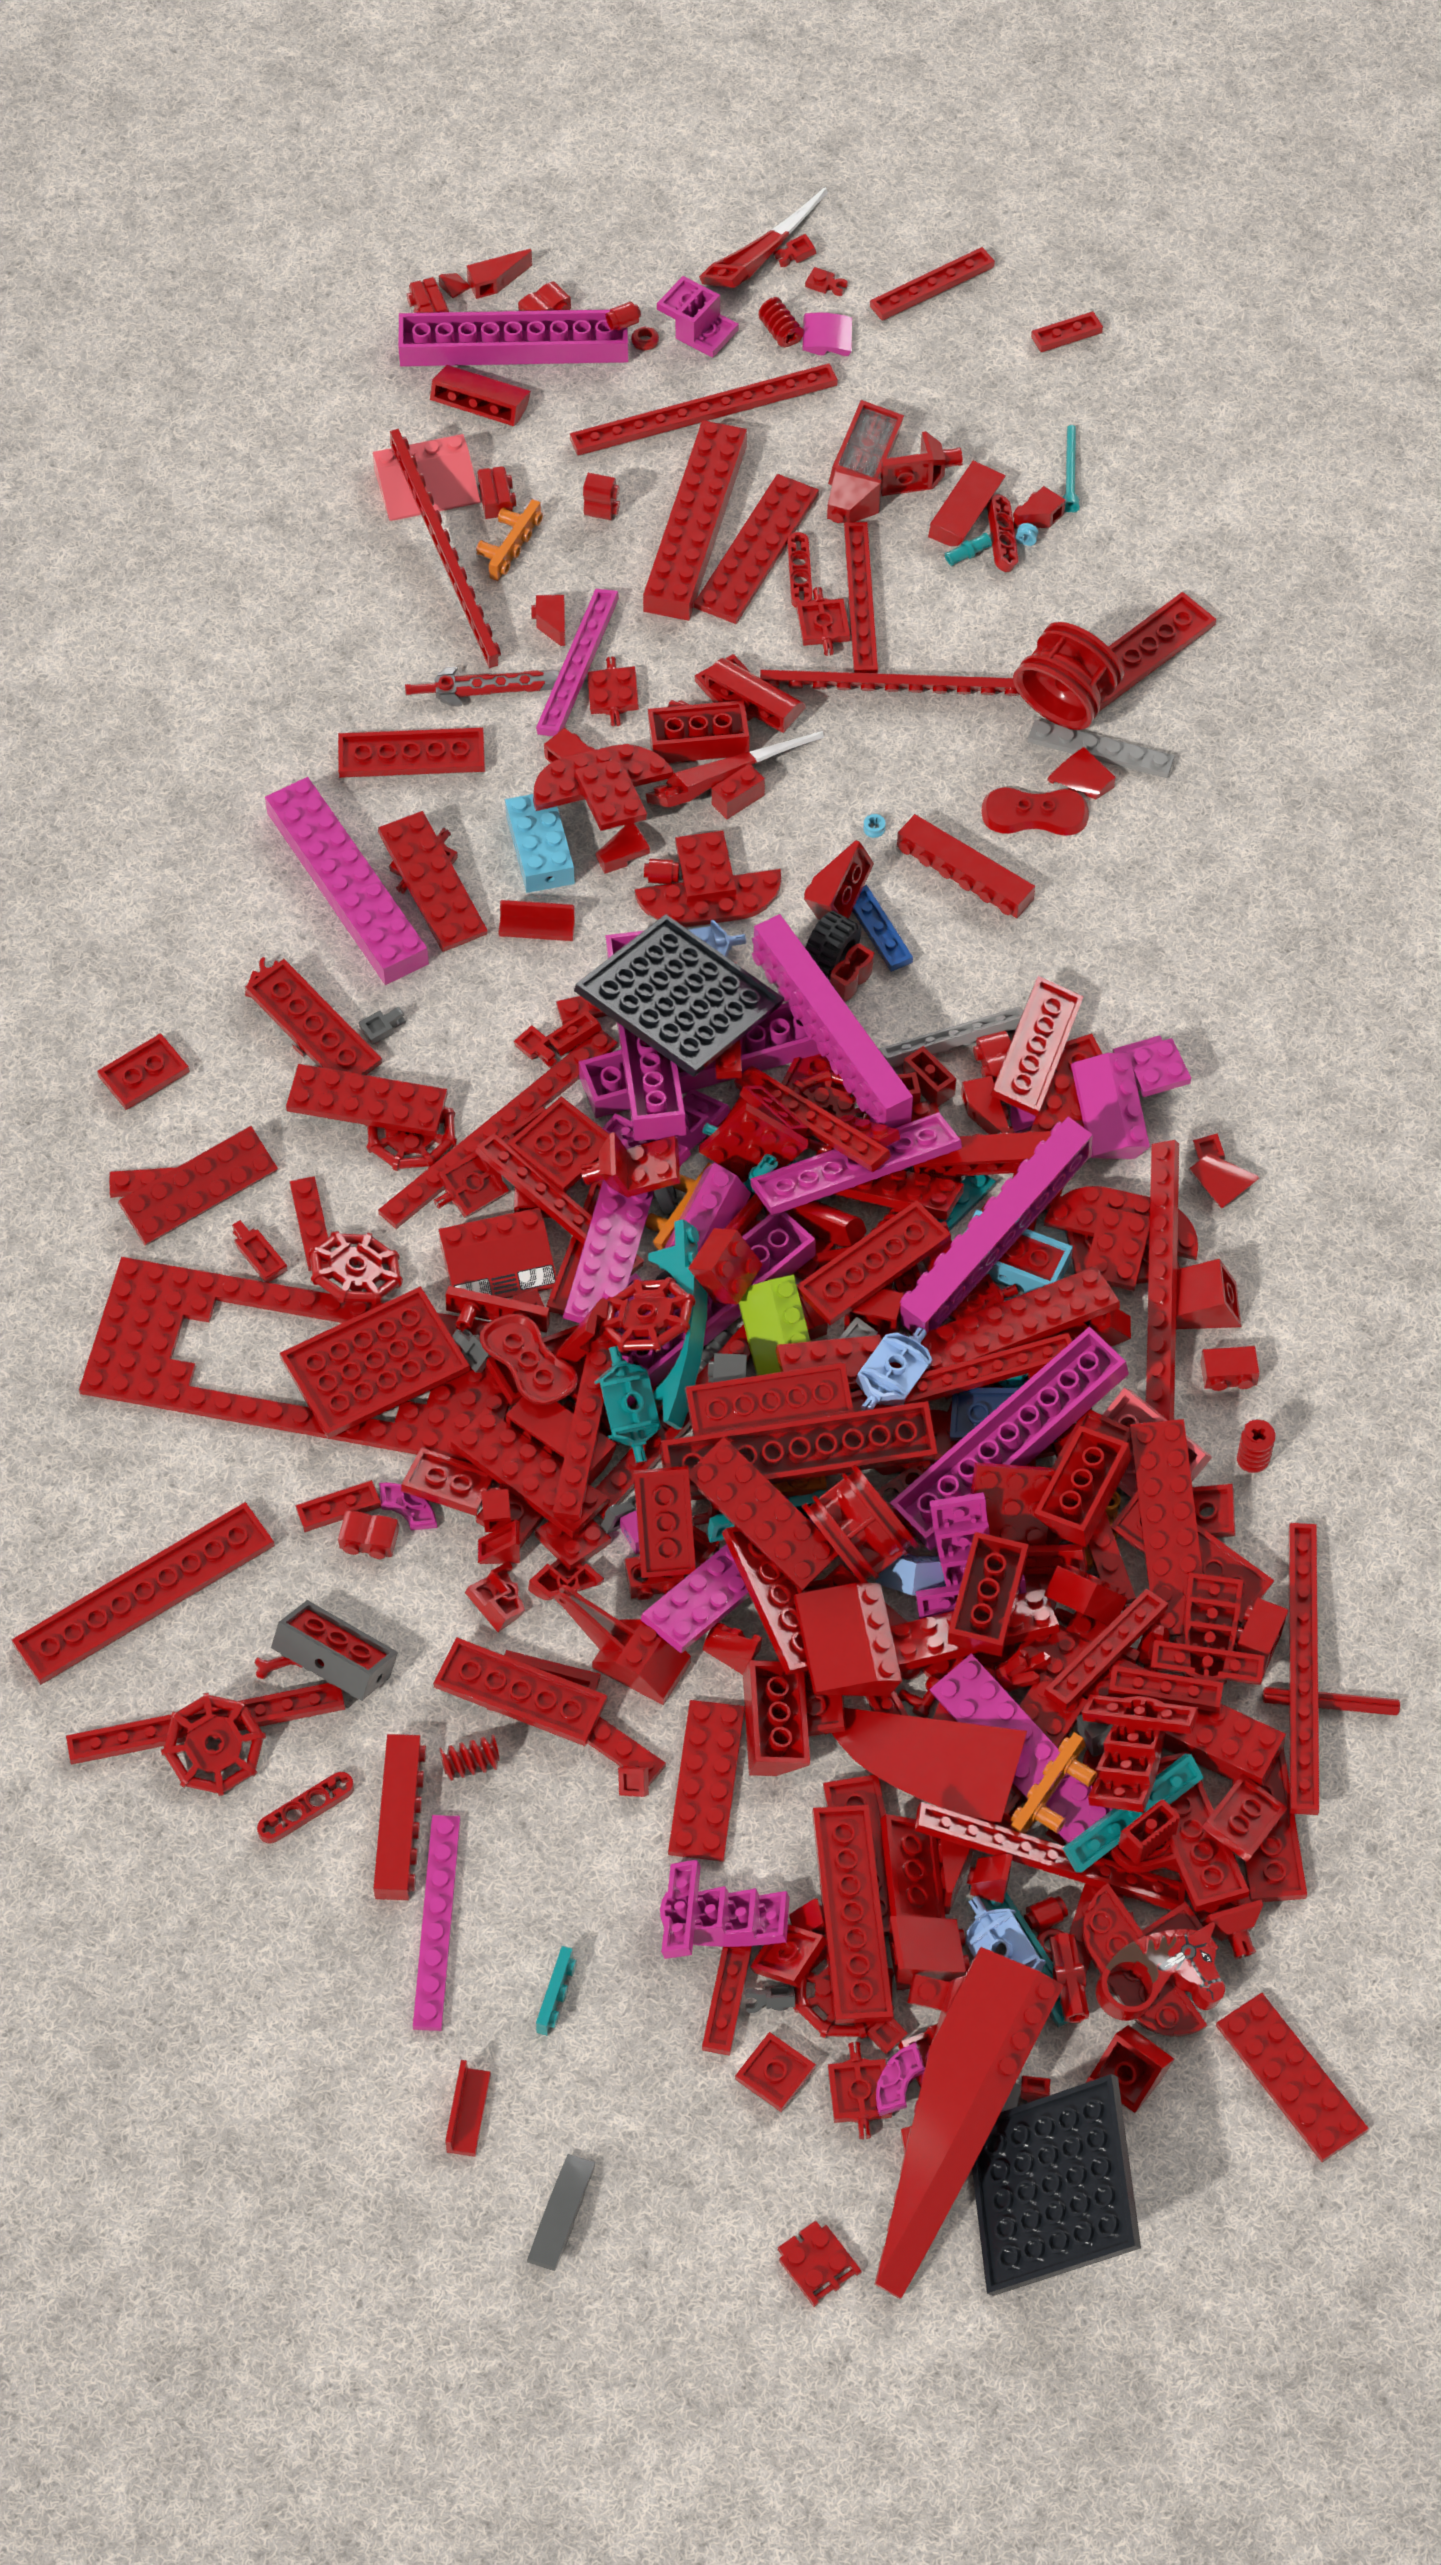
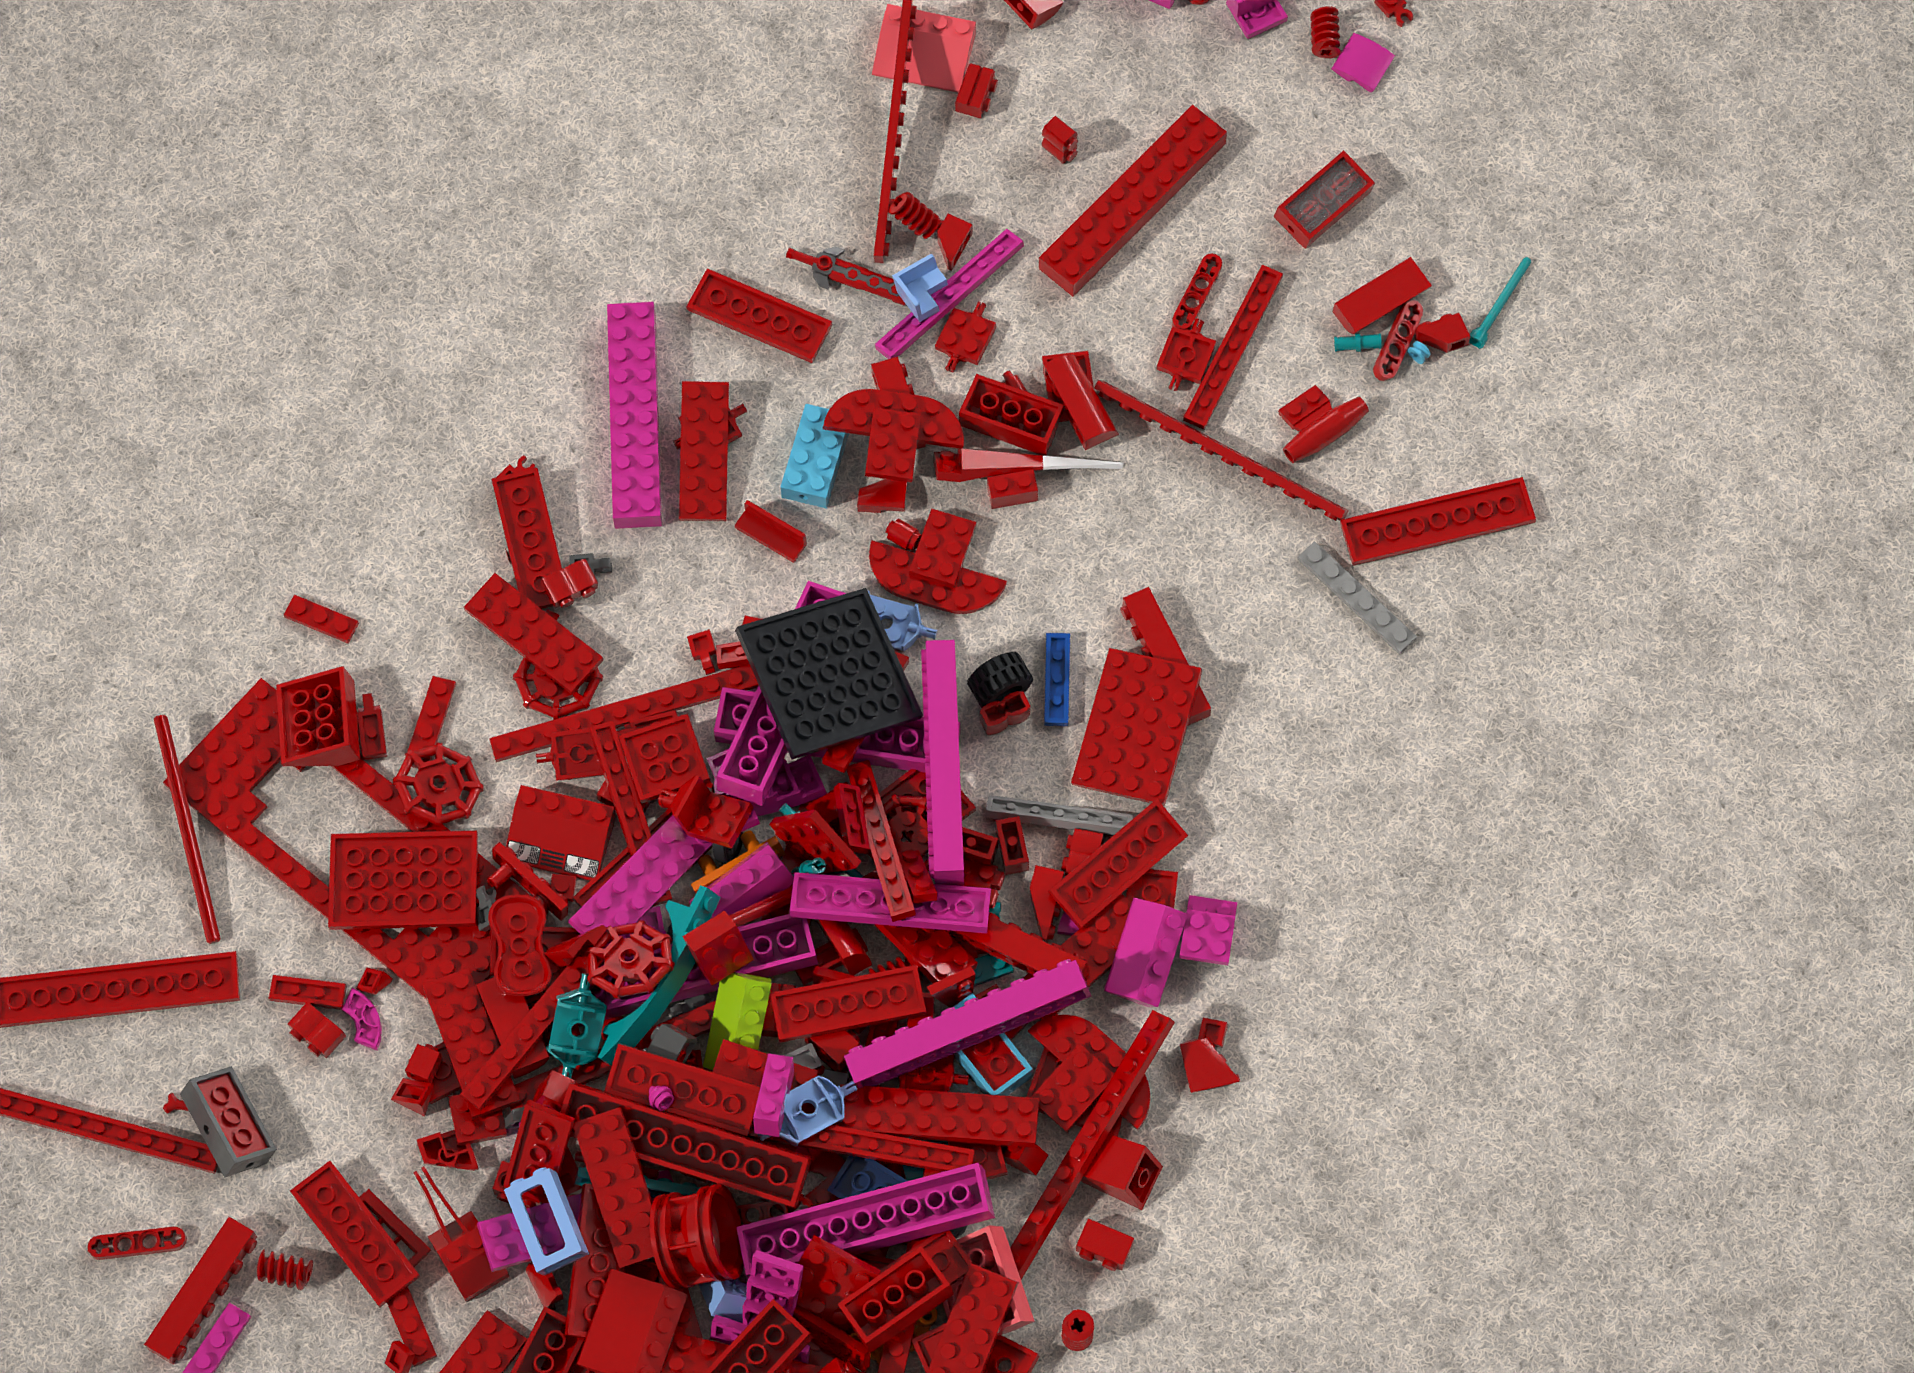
camera: 30 degrees right, 10 degrees up
(130, 1417) = (187, 829): none -> red axle
(143, 1071) = (371, 514): red plate -> none
(197, 1185) = (356, 643): red plate -> none
(204, 1262) = (318, 719): none -> red slope
(211, 1760) = (105, 1160): red plate -> none
(376, 1041) = (570, 583): none -> red brick
(396, 1467) = (373, 981): none -> red slope
(446, 1481) = (402, 1015): red plate -> none
(503, 1603) = (388, 1138): red slope -> none
(507, 608) = (914, 215): none -> red piece
(511, 547) = (971, 143): orange plate -> none
(546, 661) = (917, 284): none -> light blue panel
(639, 1458) = (552, 1090): none -> red brick
(703, 408) = (1207, 89): red plate -> none
(729, 1614) = (574, 1242): none -> light blue piece
(754, 1414) = (660, 1097): none -> dark pink plate
(756, 548) = (1172, 252): red plate -> none
(839, 882) = (1039, 627): red slope -> none
(853, 497) = (1280, 245): slope -> none
(860, 1358) = (773, 1090): none -> dark pink arch
(874, 832) = (1106, 574): medium azure bush -> none
(920, 470) = (1356, 246): red plate -> none
(932, 283) = (1488, 53): red plate -> none
(960, 1207) = (954, 987): none -> red wing
(974, 625) = (1318, 422): none -> red plate
(977, 931) = (1136, 726): none -> red plate
(1013, 811) = (1245, 621): red plate -> none
(1066, 331) = (1581, 160): red plate -> none
(1068, 675) = (1352, 522): red wheel -> none
(1084, 775) = (1324, 617): red slope -> none

